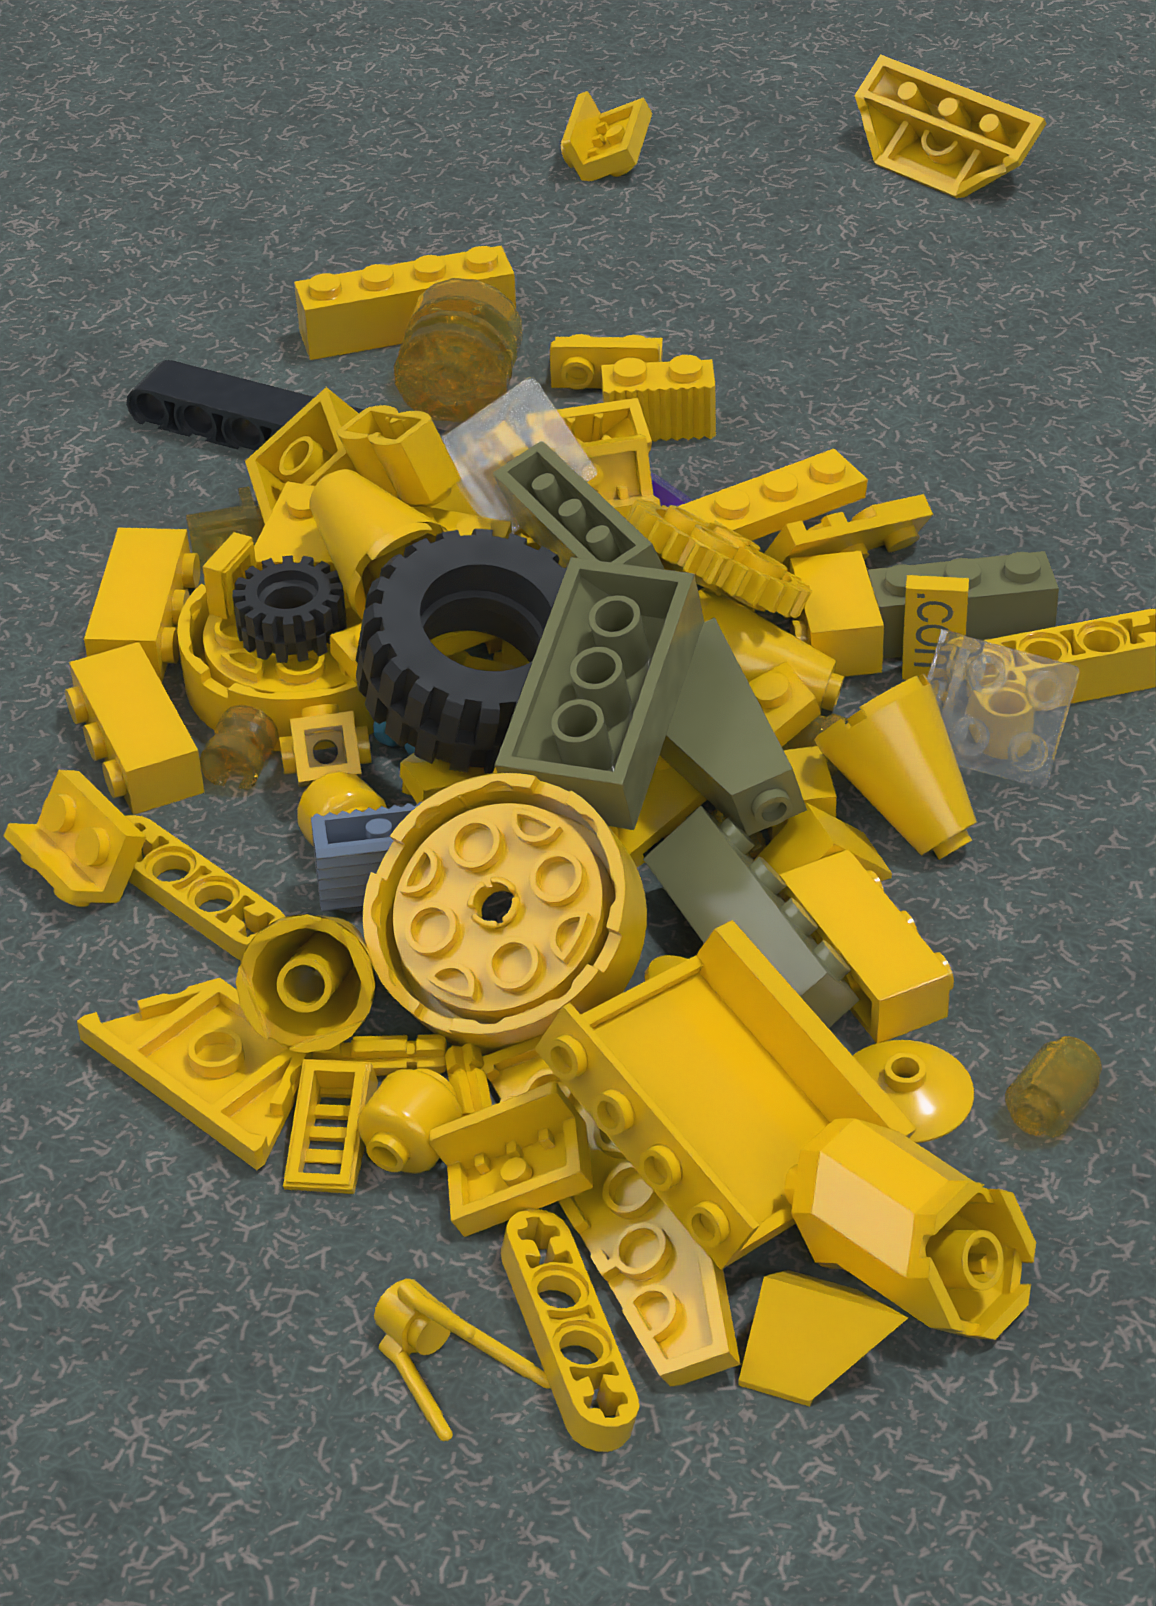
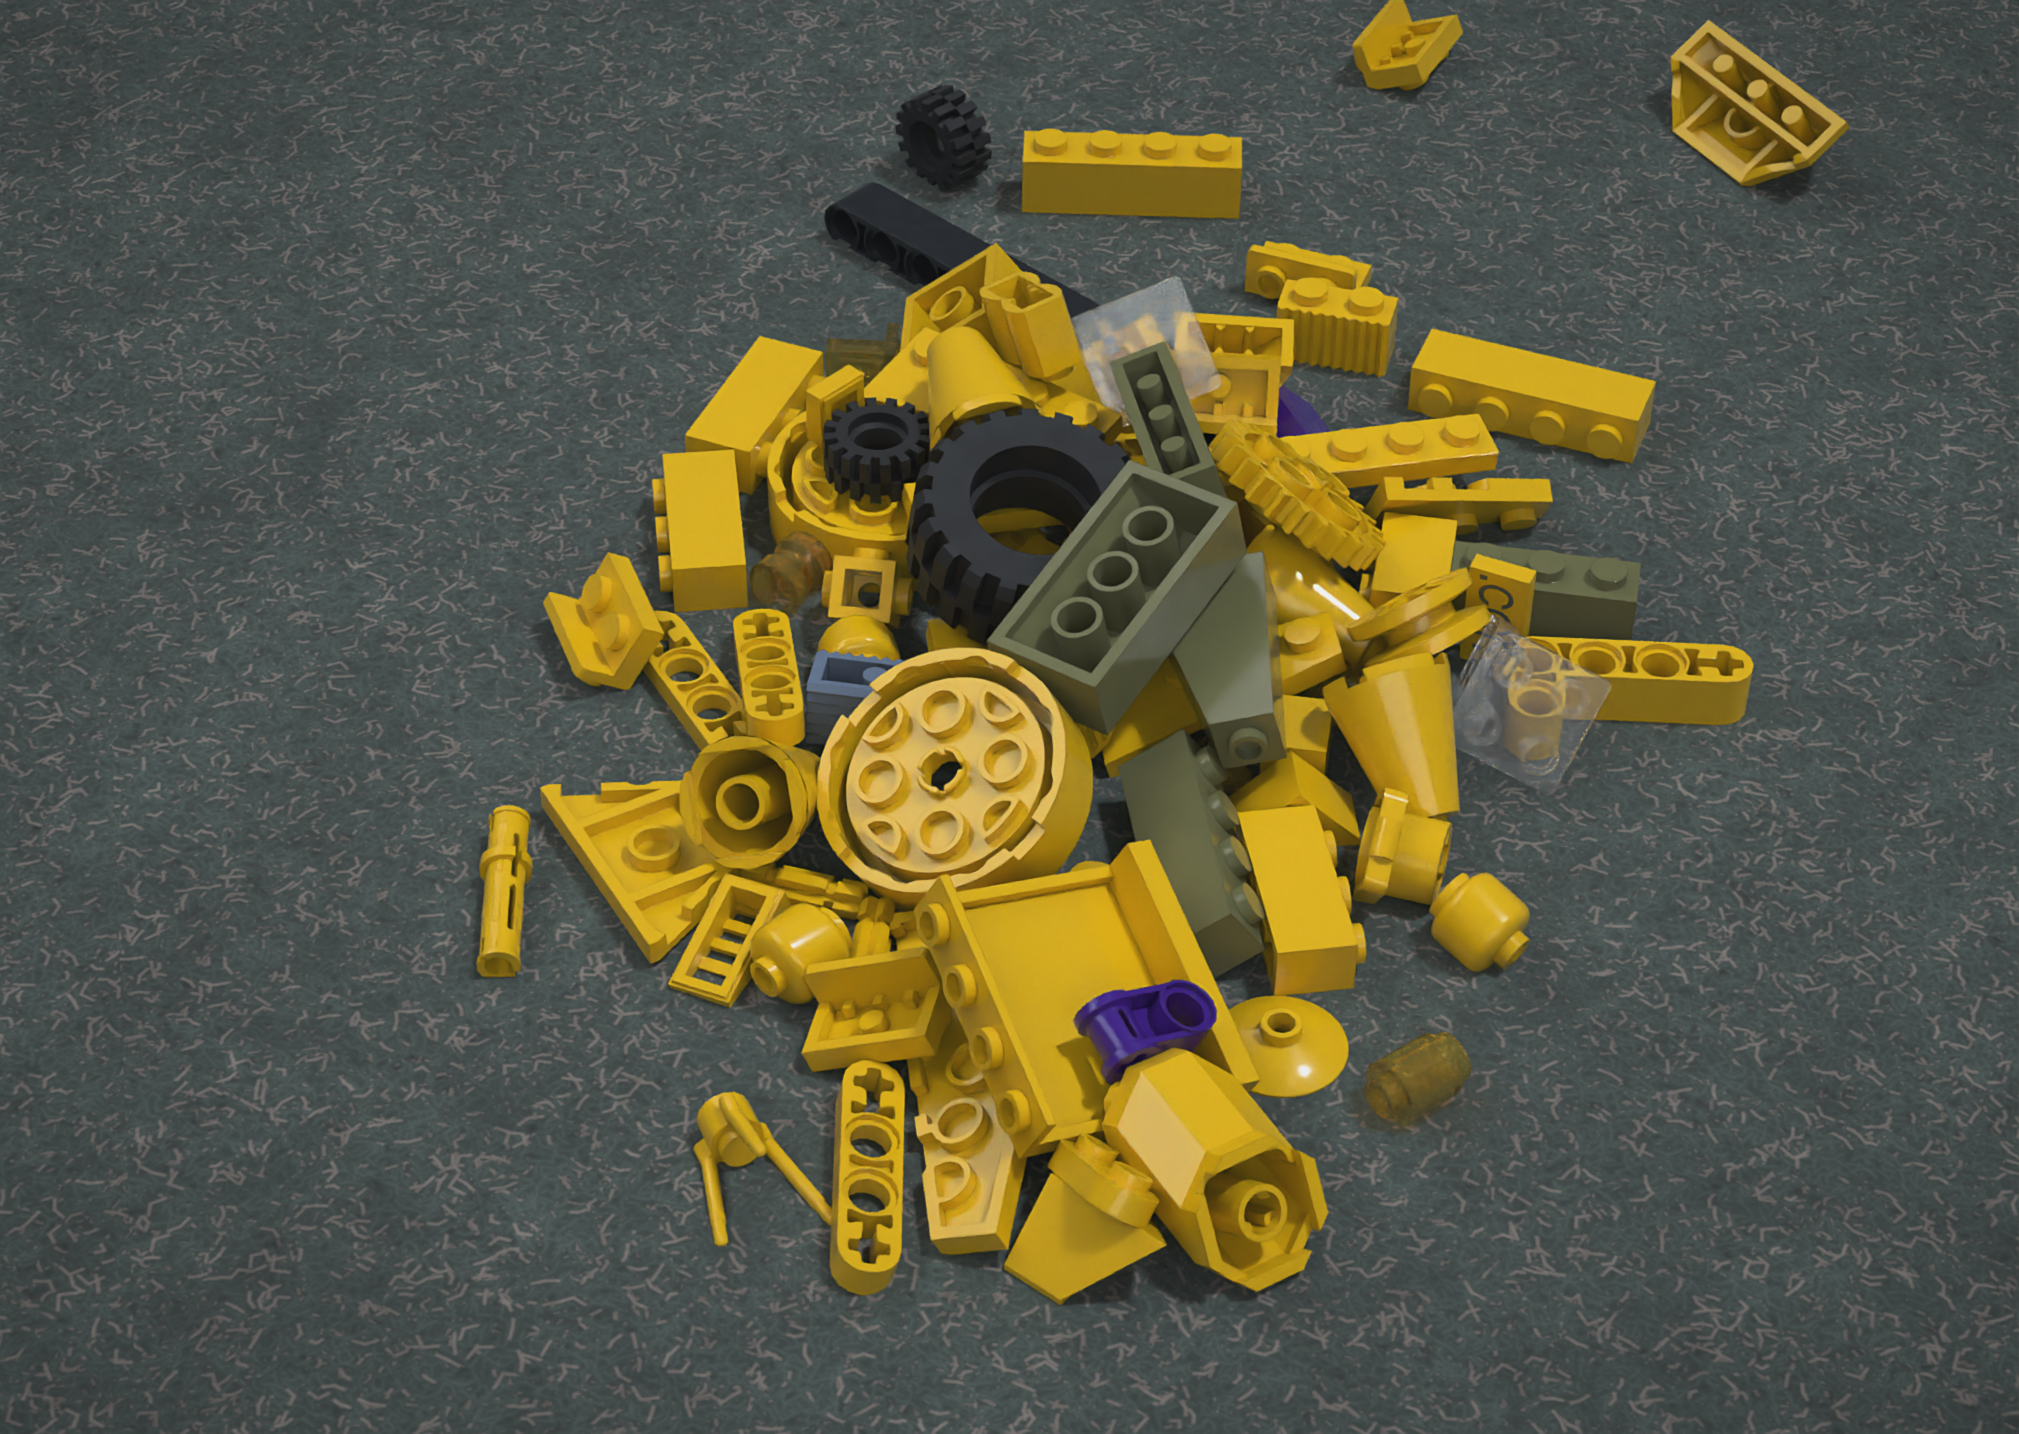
camera: 15 degrees right, 0 degrees up
(73, 1115) = (505, 872): none -> yellow pin
(233, 294) = (943, 137): none -> black tyre
(263, 854) = (769, 676): none -> yellow beam
(458, 349) = (1155, 228): clear yellow wheel -> none
(798, 1103) = (1145, 1023): none -> dark purple piece
(835, 1275) = (1103, 1182): none -> yellow plate
(865, 422) = (1532, 395): none -> yellow brick
(878, 652) = (1421, 619): none -> yellow wheel
(944, 873) = (1401, 853): none -> yellow piece
(1044, 923) = (1480, 922): none -> yellow head

